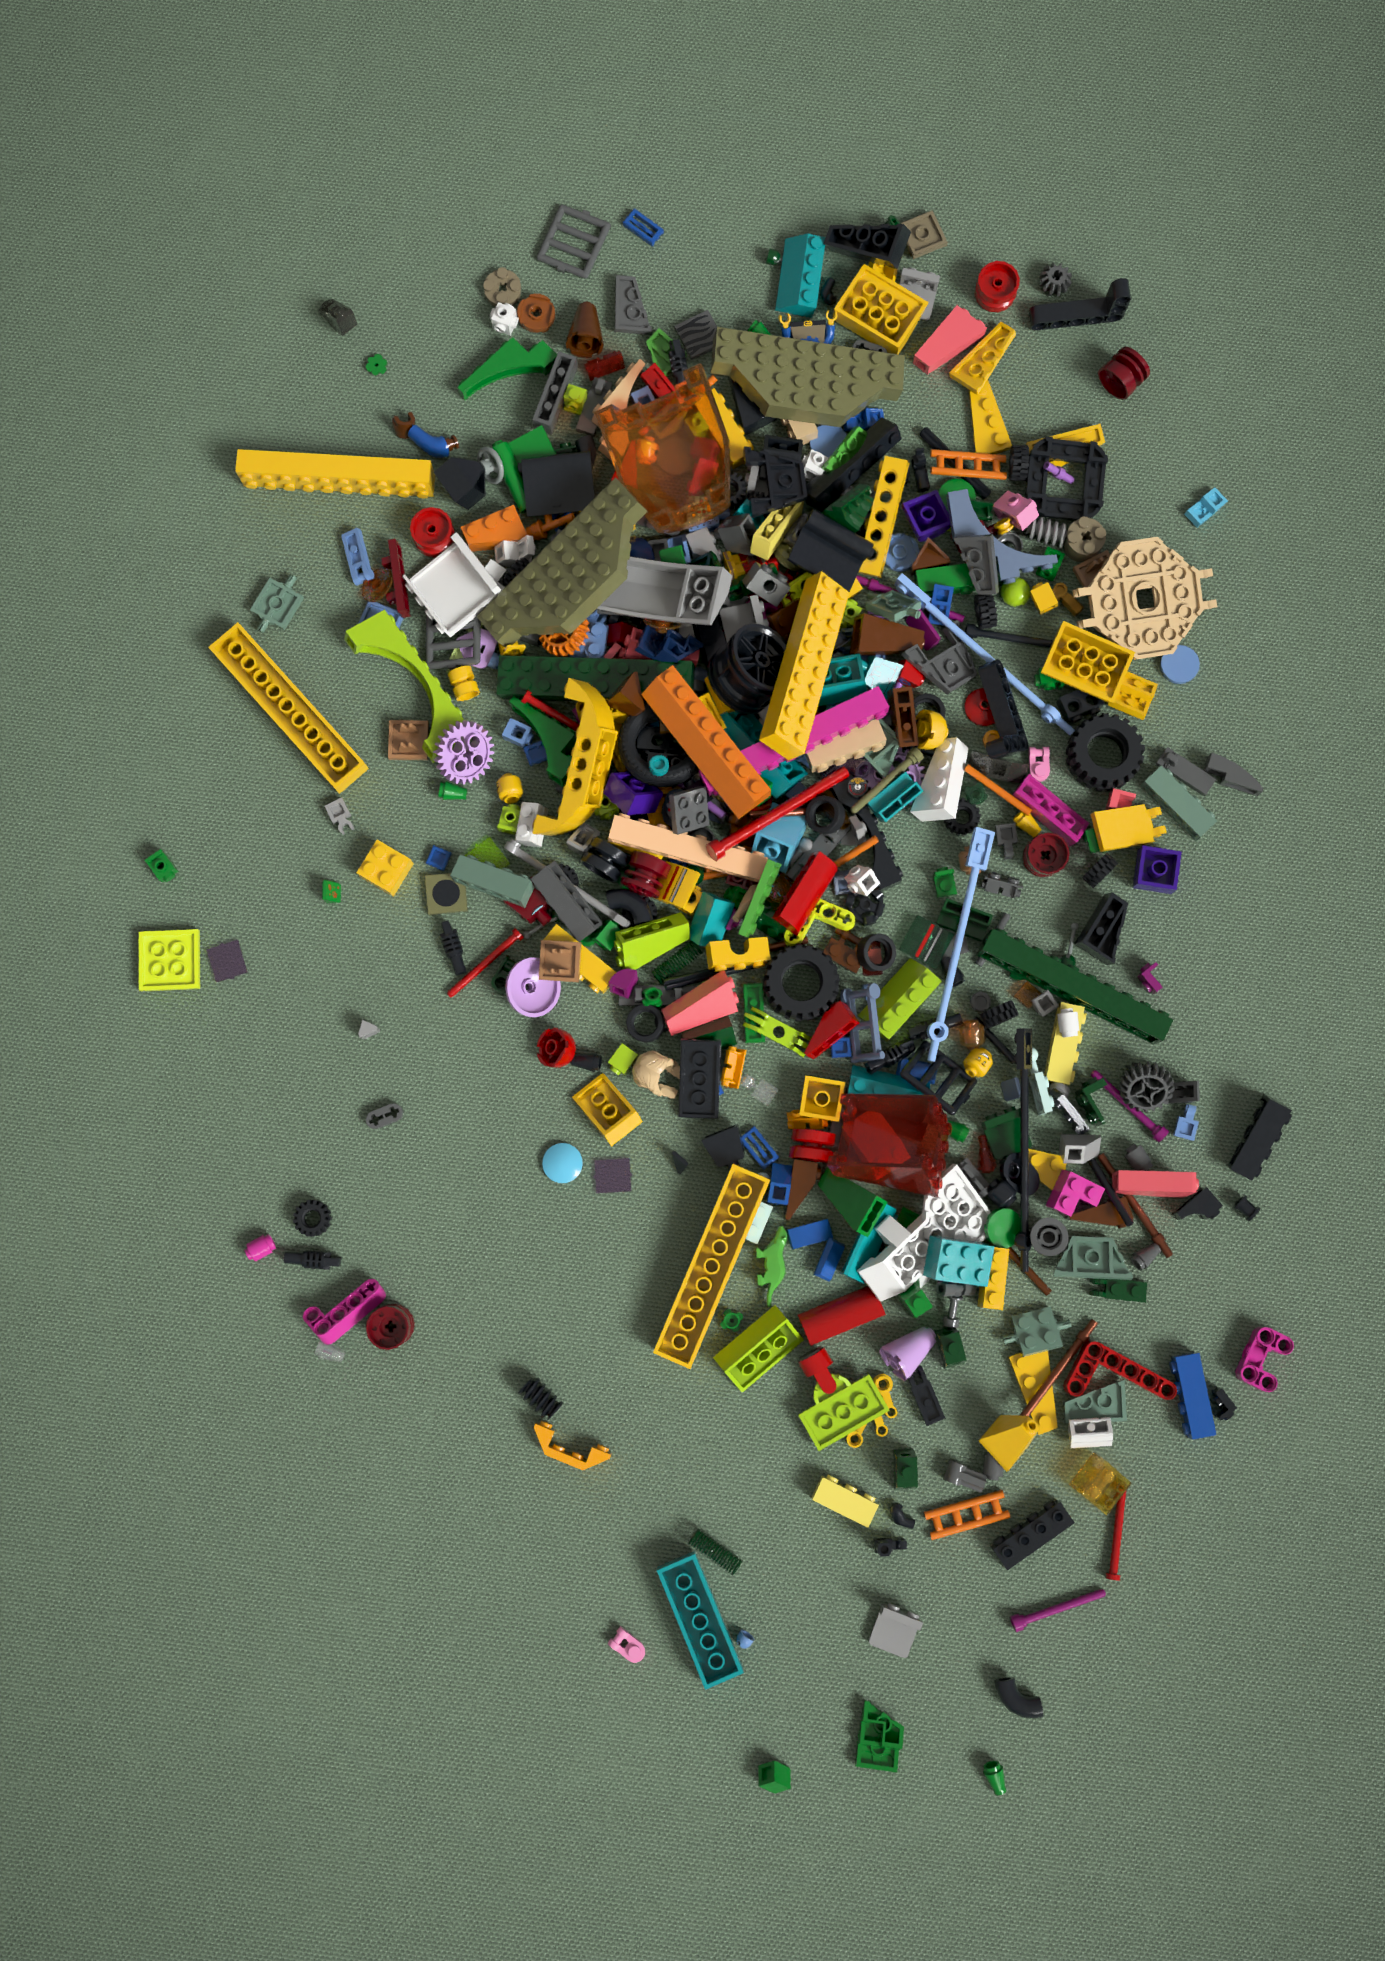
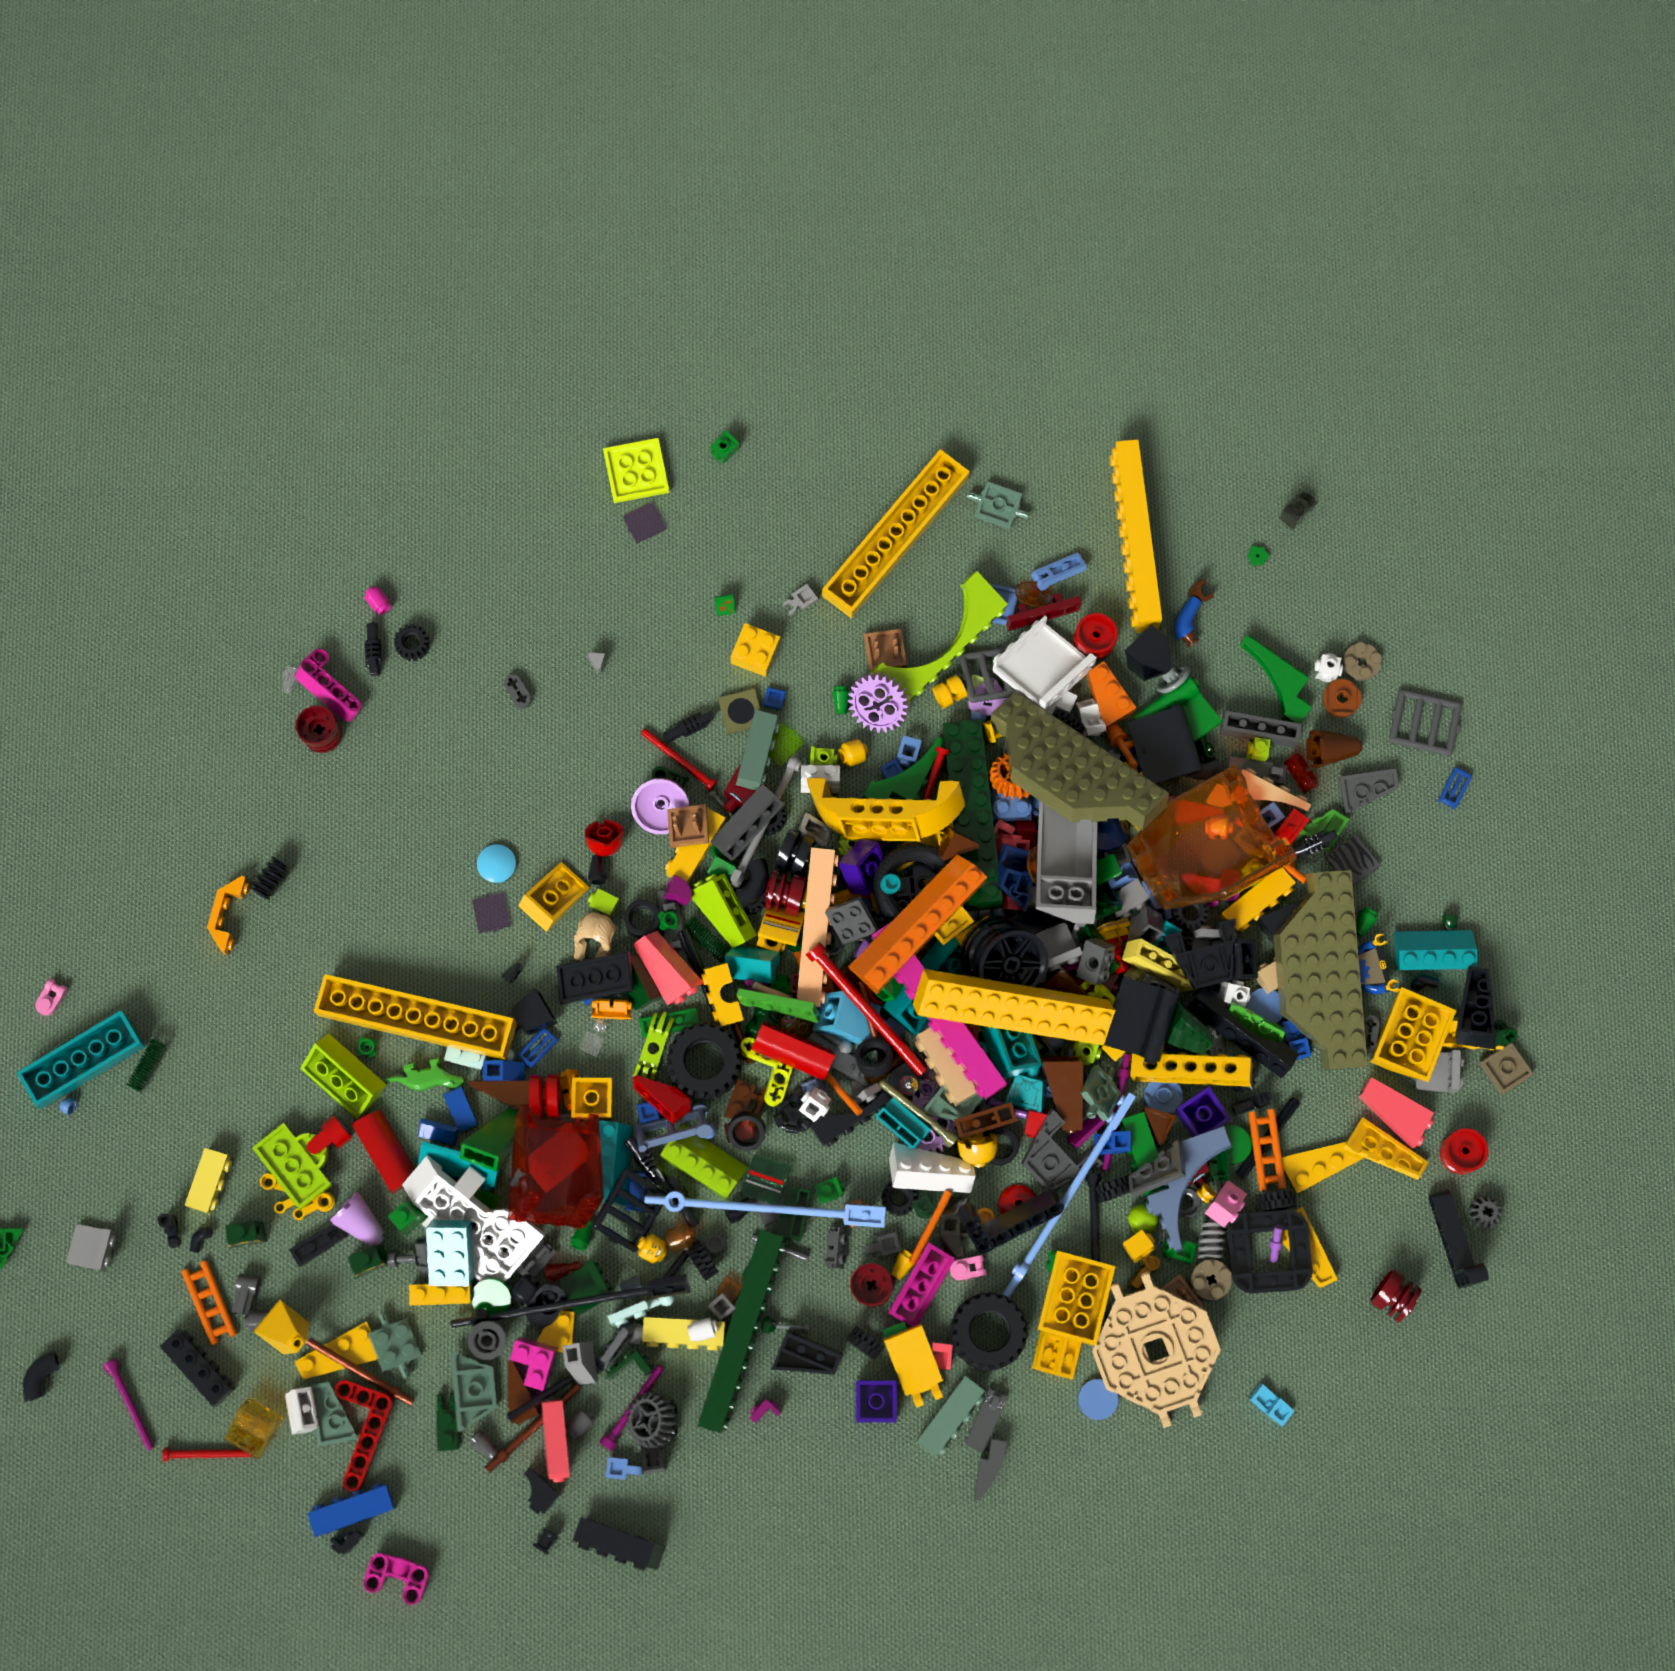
camera: 75 degrees right, 5 degrees down
(1031, 1274) = (451, 1331): reddish brown bar -> none
(1078, 699) = (1032, 1304): black brick -> none

